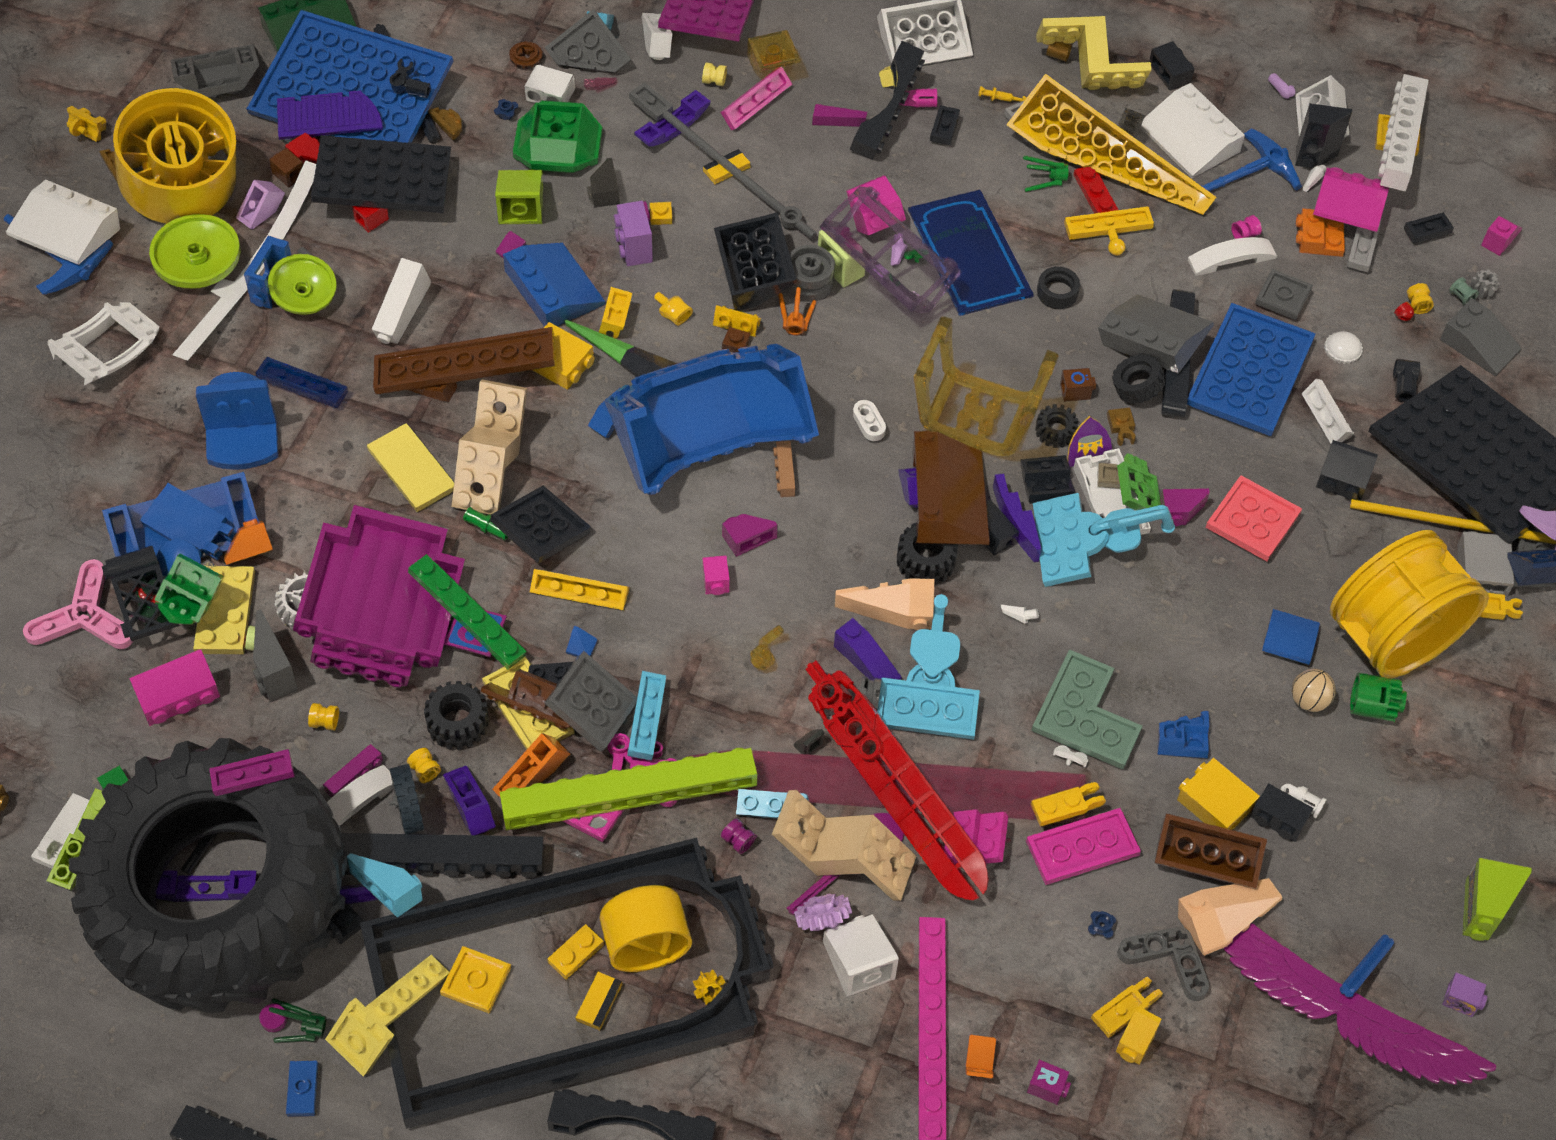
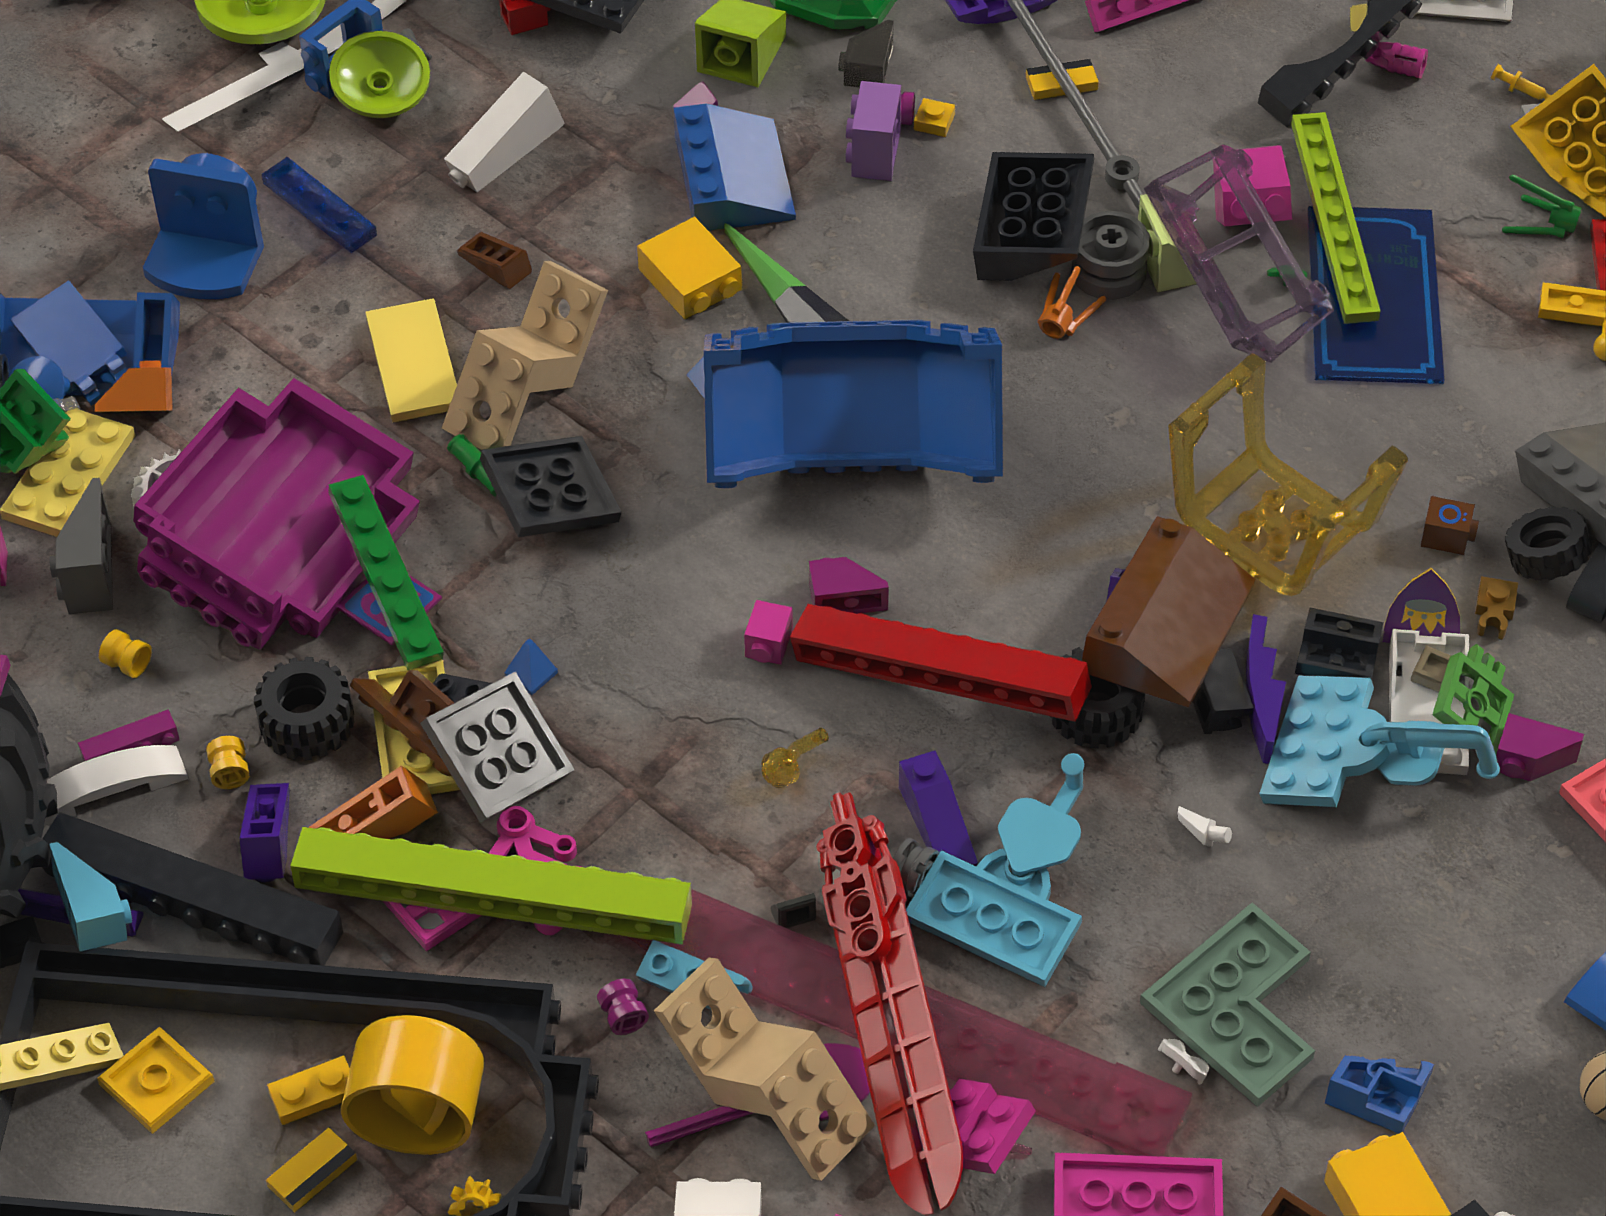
camera: 25 degrees right, 5 degrees down
(72, 345) = (37, 77): white wedge -> none
(406, 799) = (173, 796): black wheel -> none
(464, 360) = (551, 235): reddish brown plate -> none
(579, 589) = (565, 594): yellow slope -> none
(615, 311) = (798, 229): yellow hinge -> none
(646, 715) = (571, 794): medium azure plate -> none
(673, 308) = (889, 251): yellow piece -> none
(735, 319) = (972, 292): yellow hinge -> none
(735, 339) = (960, 313): reddish brown plate -> none
(785, 468) = (944, 516): medium nougat piece -> none
(823, 912) = (689, 1154): lavender gear -> none
(830, 561) = (942, 661): none -> red brick
(837, 116) = (1257, 51): magenta piece -> none
(870, 422) = (1105, 491): white plate -> none
(898, 251) = (1259, 266): lavender bar -> none
(902, 605) = (1015, 753): light nougat wedge -> none
(929, 210) = (1335, 218): none -> lime plate
(945, 125) = (1418, 105): black plate -> none
(1058, 415) = (1385, 559): black tyre -> none
(1063, 275) = (1486, 359): black tyre -> none
(1066, 804) = (1138, 1124): yellow hinge -> none

